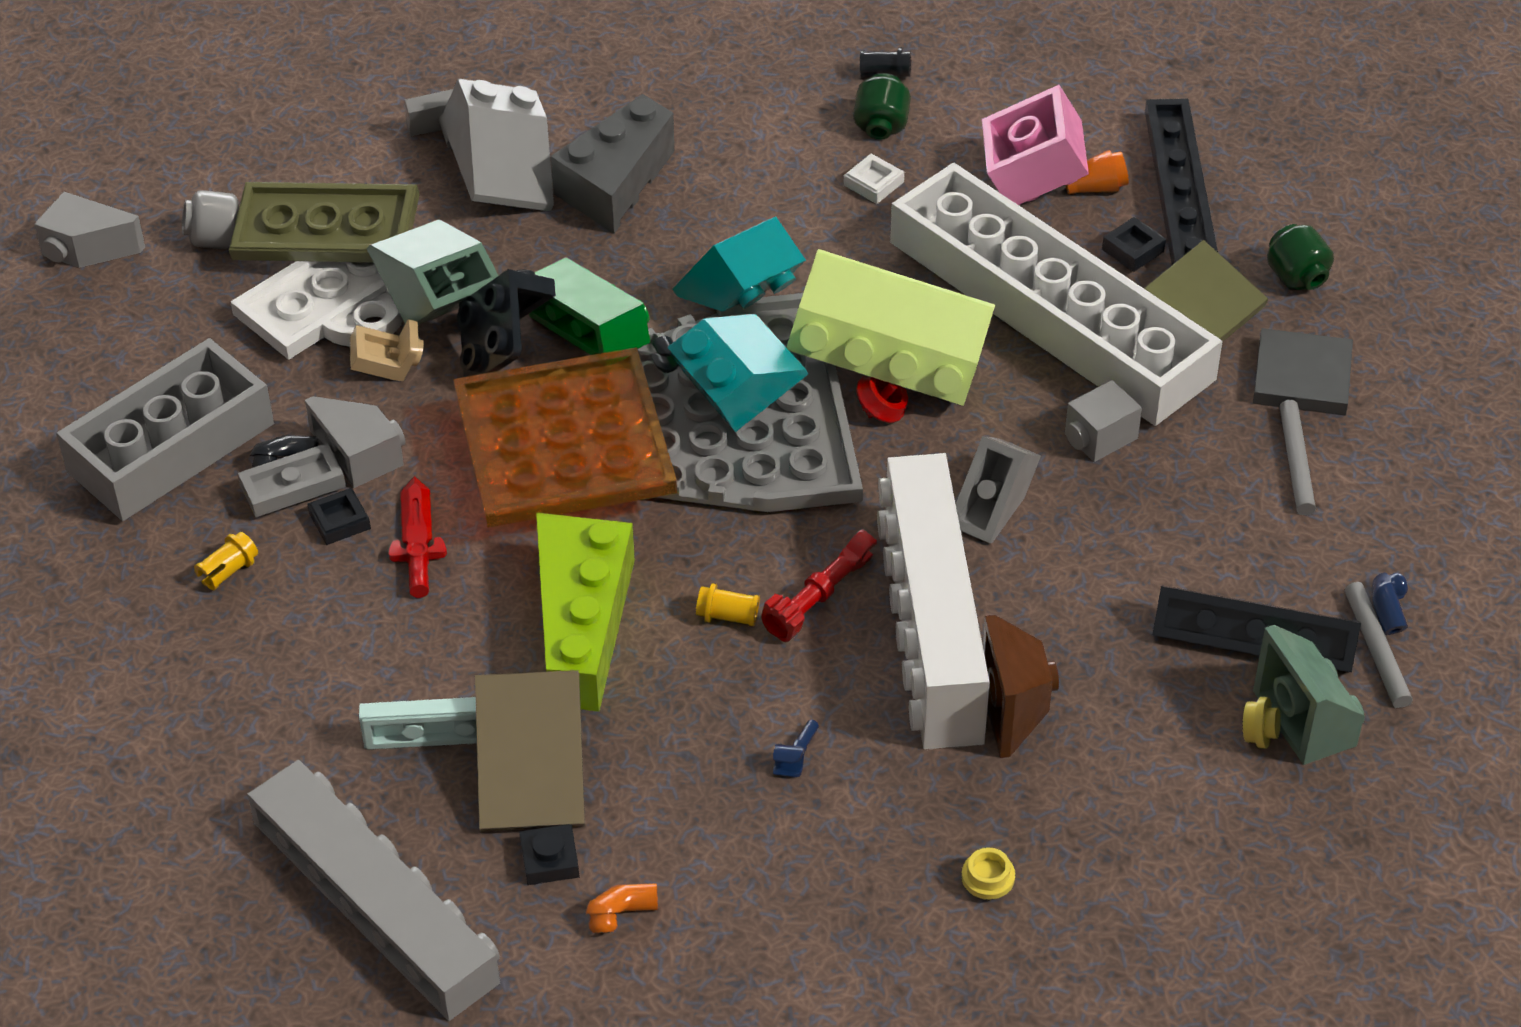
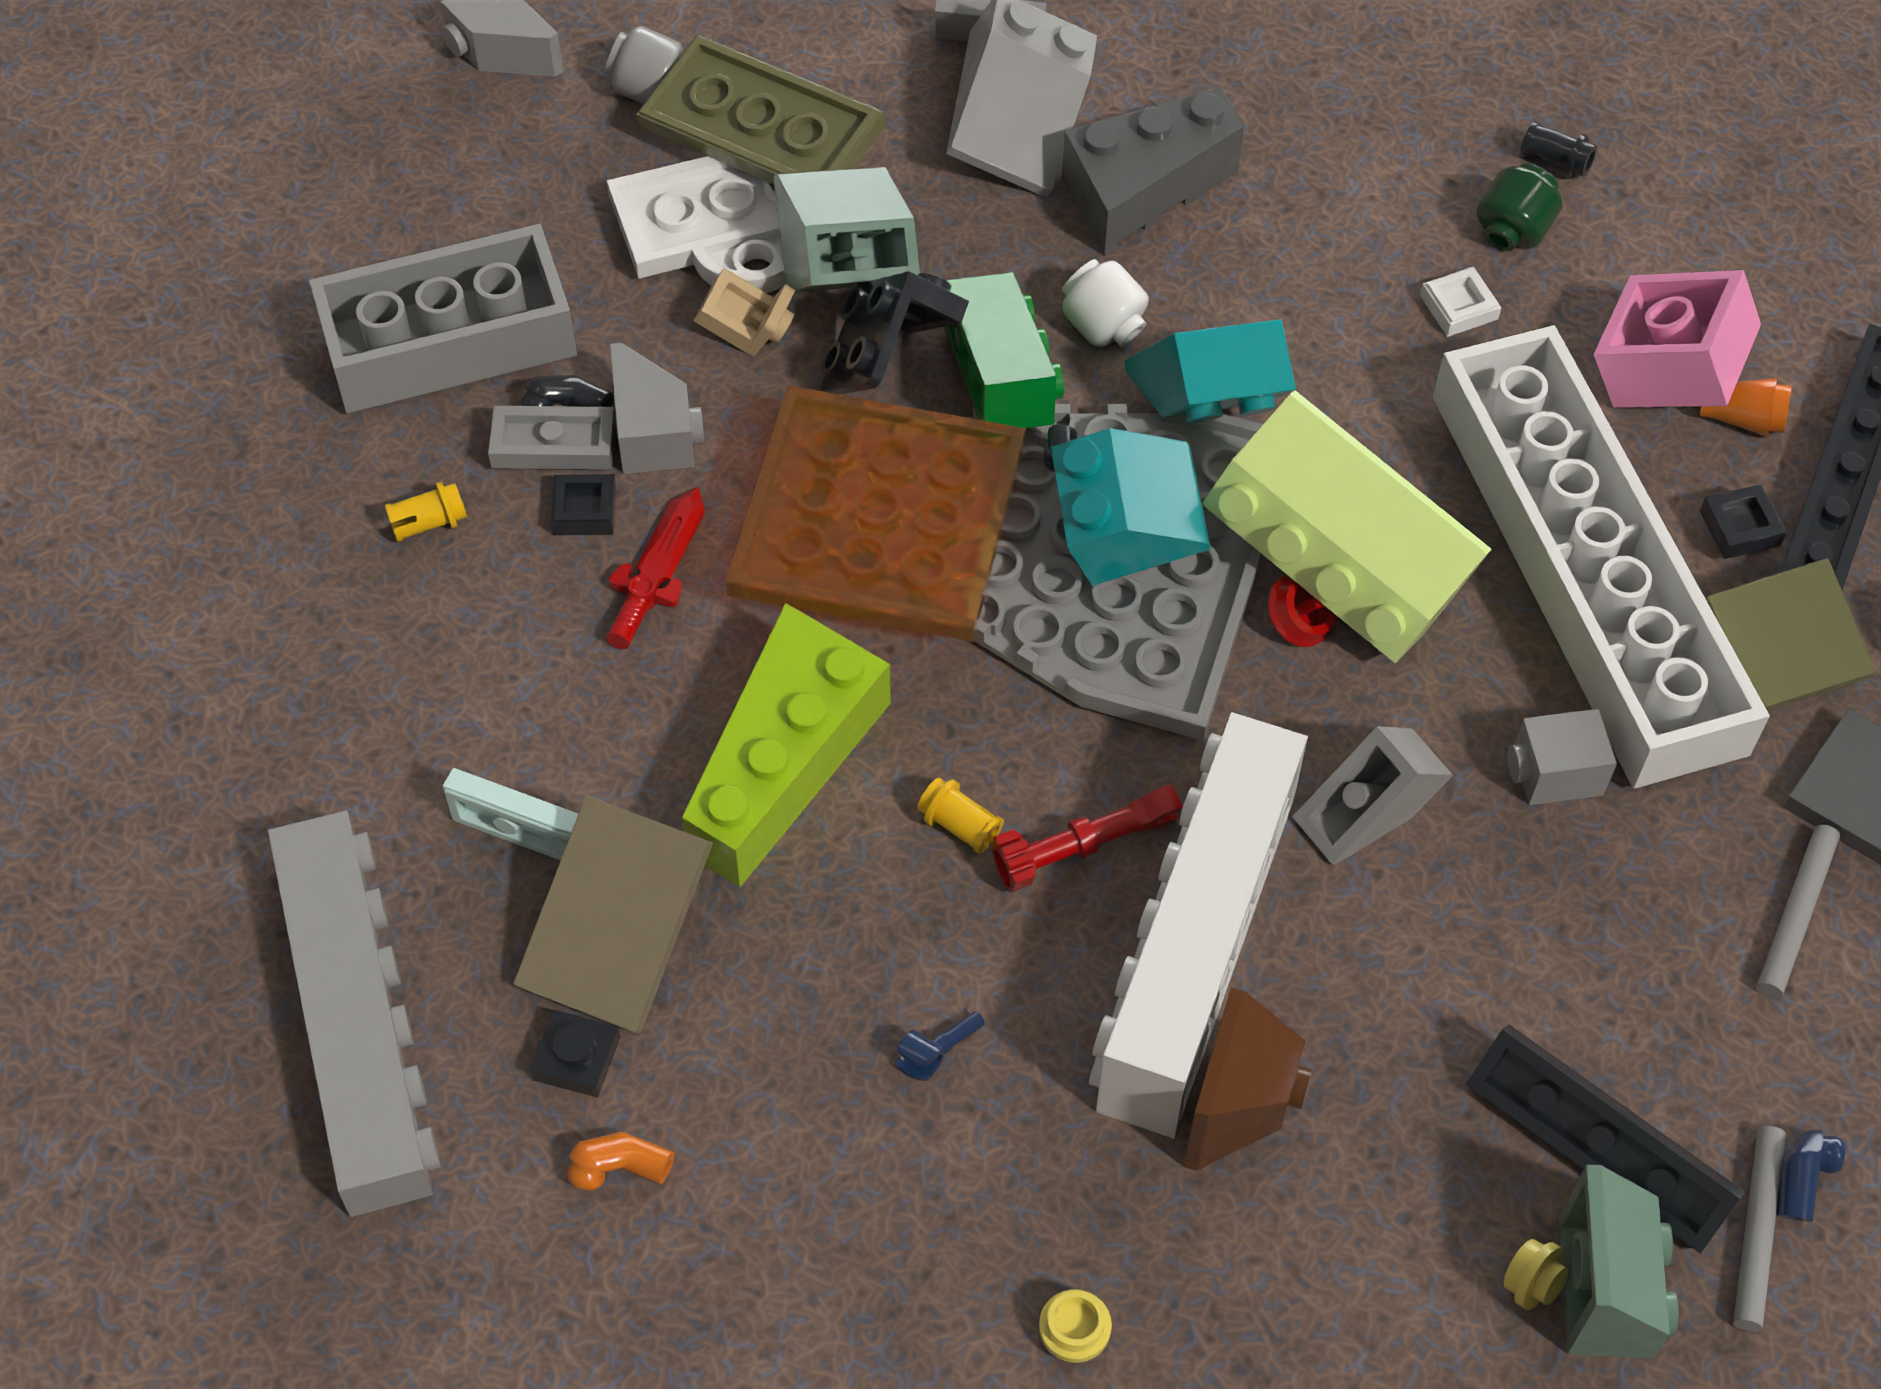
camera: 25 degrees right, 10 degrees up
(637, 258) = (1105, 303): none -> white head

